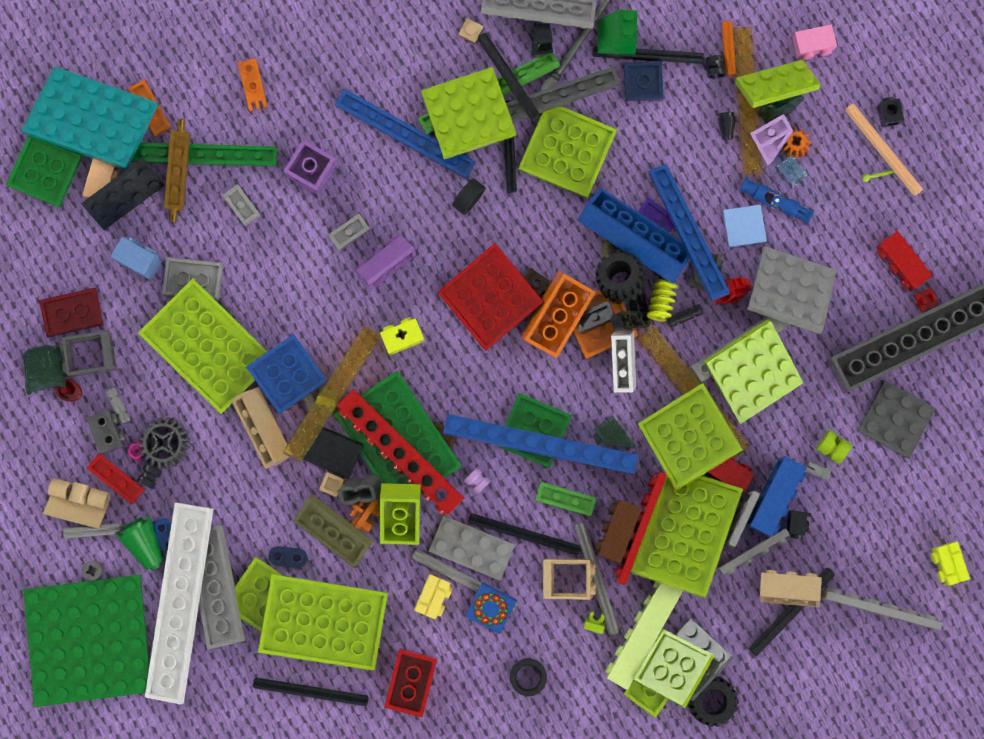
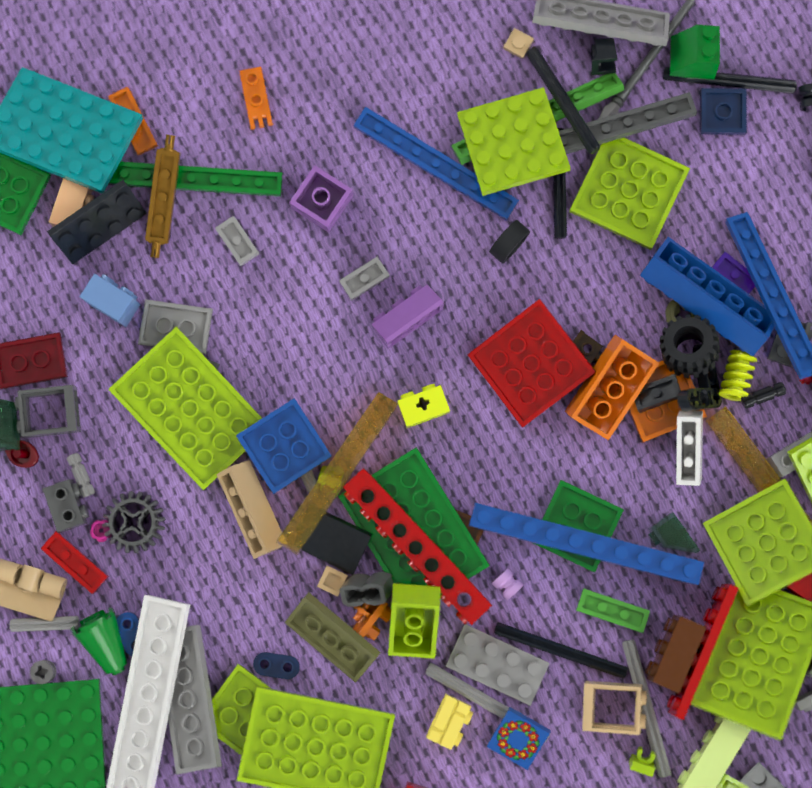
camera: 10 degrees right, 0 degrees up
(148, 478) = (114, 562): black wheel -> none

